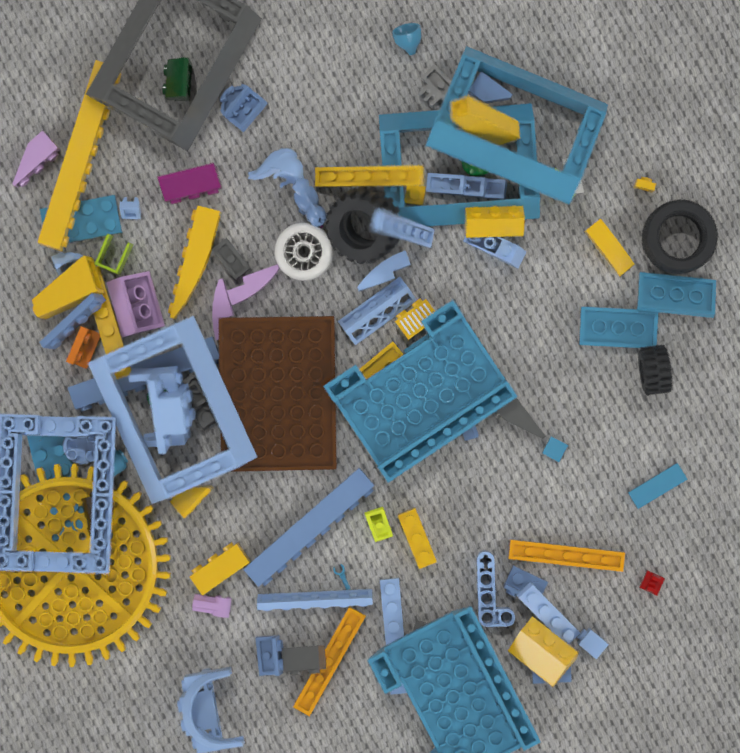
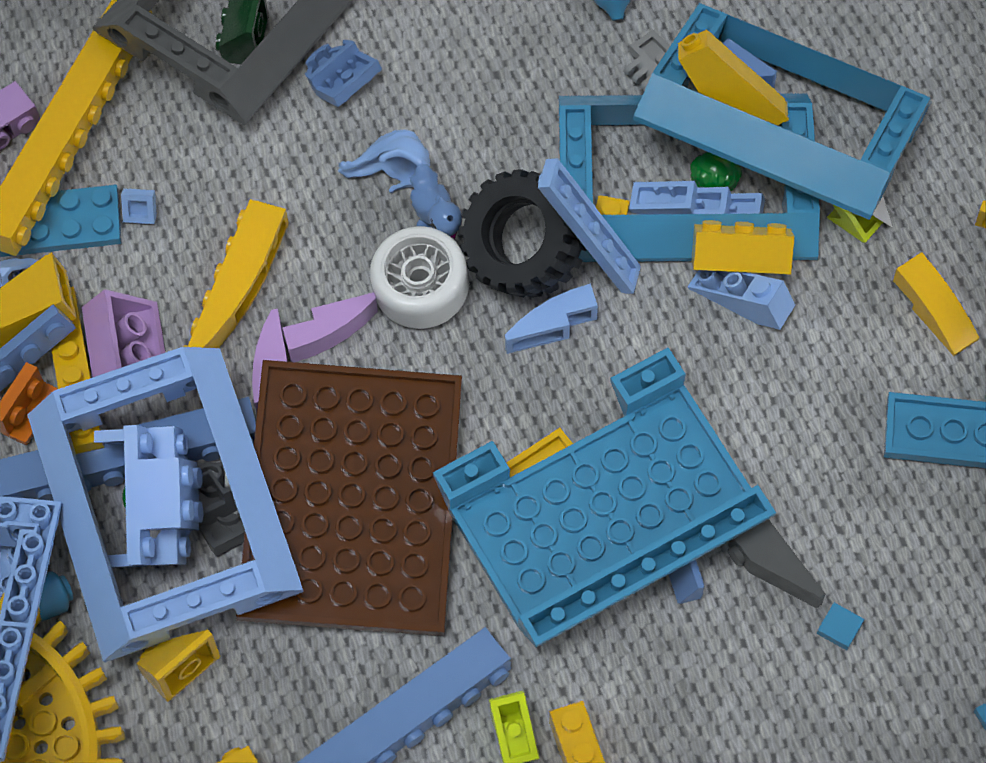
camera: 10 degrees right, 25 degrees down
(102, 253) = (86, 259): lime piece -> none
(190, 183) = (242, 166): magenta slope -> none
(231, 258) = (295, 287): dark grey plate -> none
(369, 176) = (578, 158): yellow plate -> none
(375, 308) = (531, 372): light blue fence -> none
(410, 321) = (594, 399): yellow brick -> none

